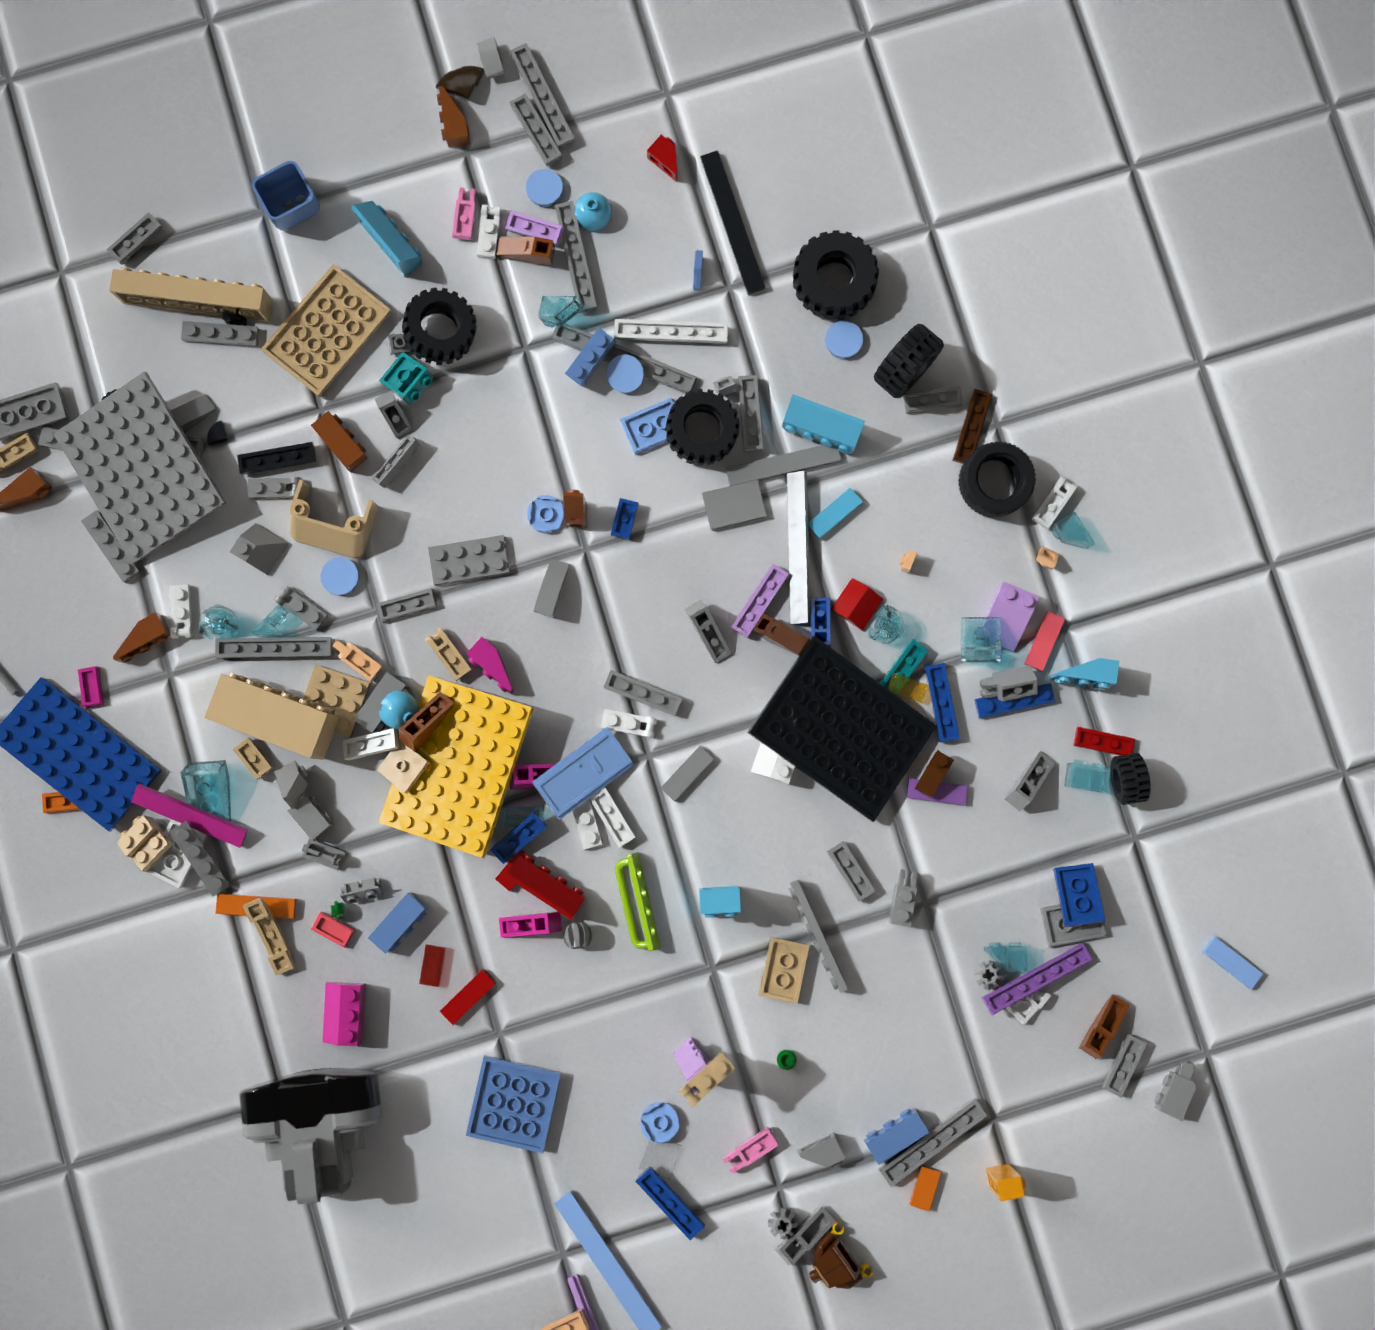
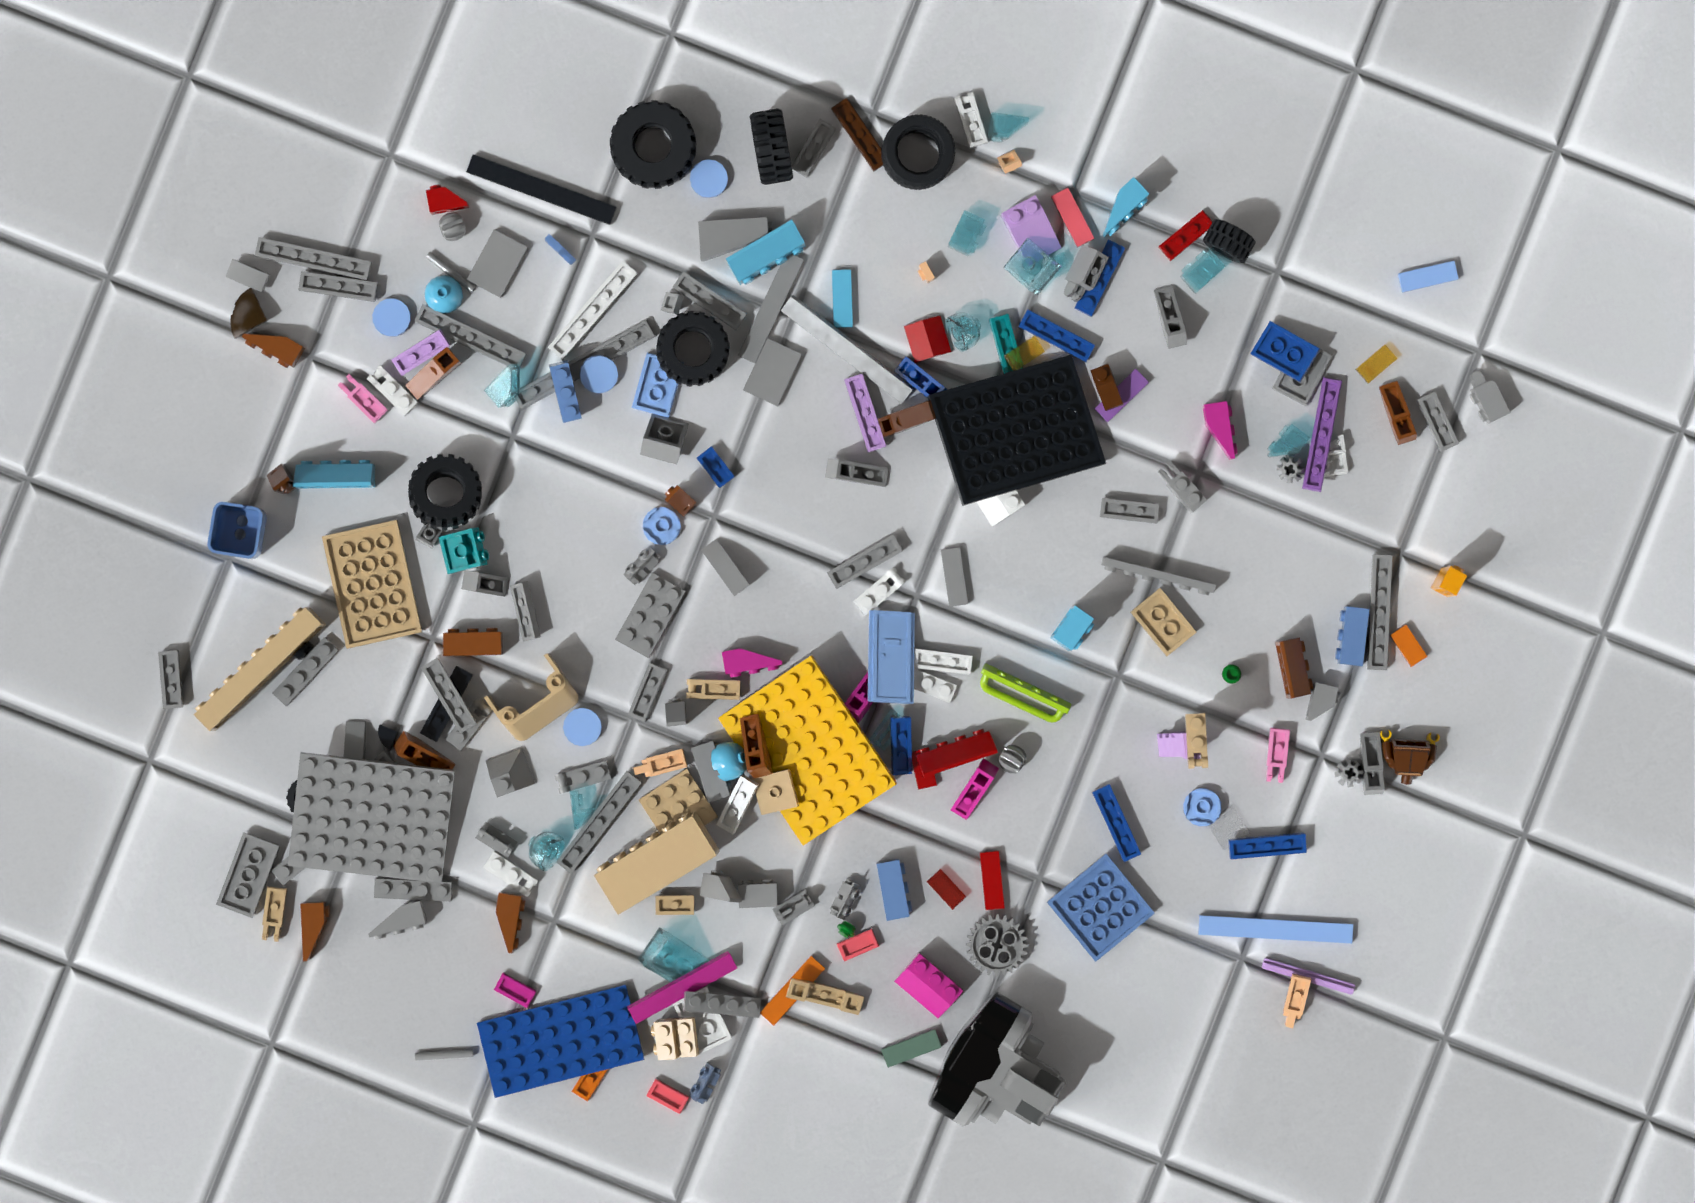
camera: 60 degrees left, 5 degrees up
(83, 556) = (405, 916): none -> light grey slope
(95, 873) = (667, 1096): none -> coral tile
(135, 892) = (707, 1075): none -> sand blue hinge
(199, 579) = (496, 839): none -> light grey hinge
(222, 468) = (420, 753): none -> dark orange slope
(281, 1039) = (911, 1048): none -> sand green tile
(282, 453) = (448, 695): none -> light grey plate
(349, 196) = (281, 479): none -> reddish brown slope
(405, 639) = (675, 712): none -> light grey slope
(424, 1059) = (979, 940): none -> light grey gear
(510, 523) = (646, 558): none -> light grey hinge
(592, 1062) = (1116, 823): none -> blue plate
(614, 205) = (449, 271): none -> light grey bar
(614, 462) = (664, 439): none -> light grey slope
(649, 176) = (452, 226): none -> light grey piece
(649, 233) = (497, 263): none -> light grey tile
(809, 383) = (726, 236): none -> light grey slope
(831, 1108) = (1294, 668): none -> dark orange slope
(964, 568) = (966, 233): none -> clear light blue brick
(977, 887) = (1218, 423): none -> dark pink slope
(1128, 977) = (1376, 364): none -> clear yellow tile

